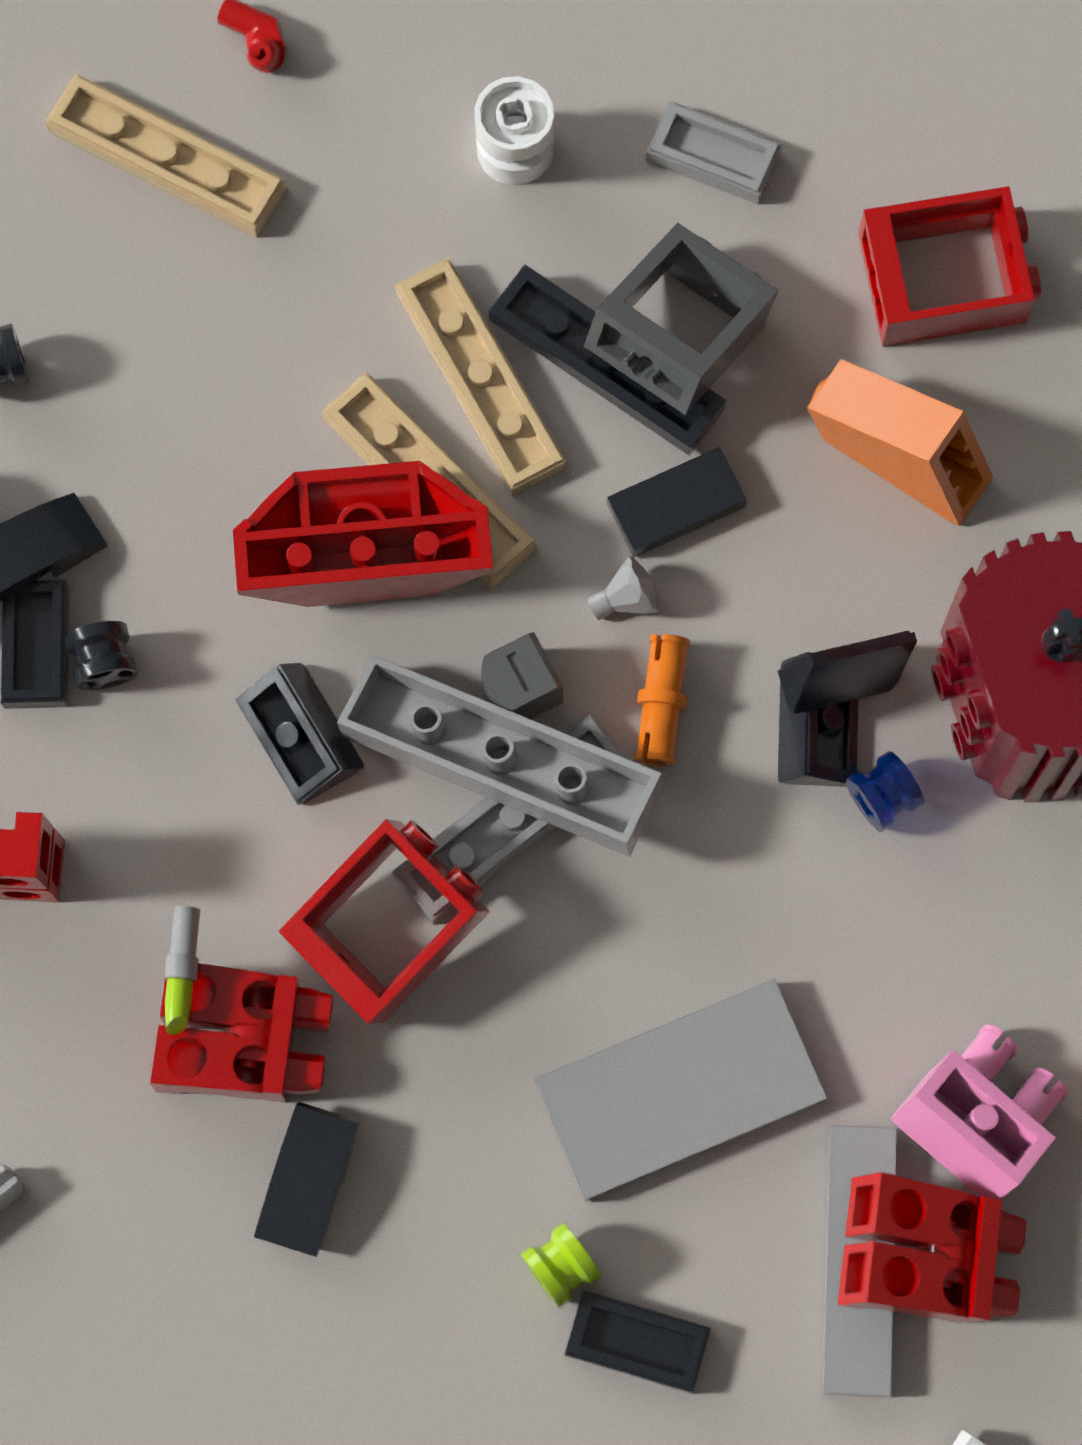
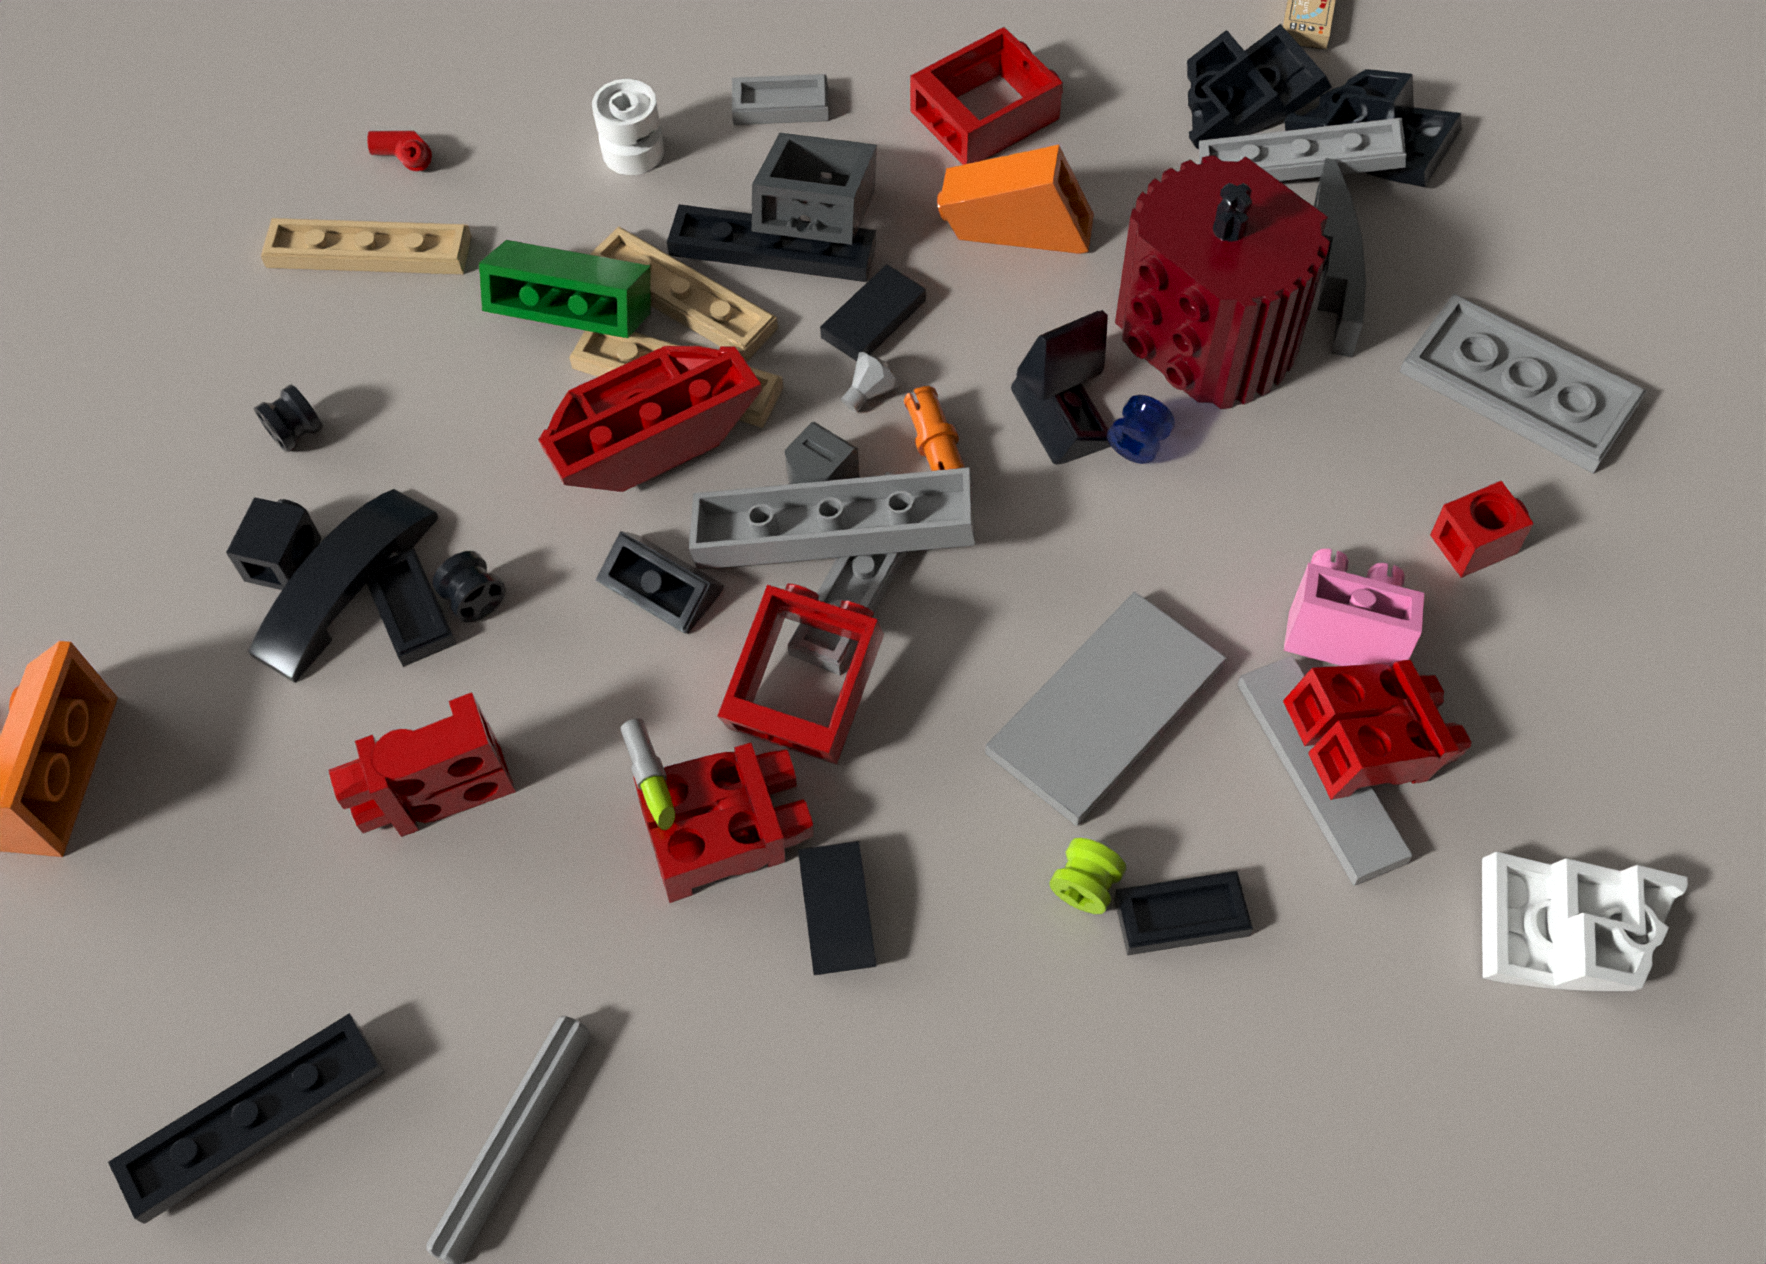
camera: 25 degrees left, 15 degrees down
(350, 329) = (565, 288): none -> green brick

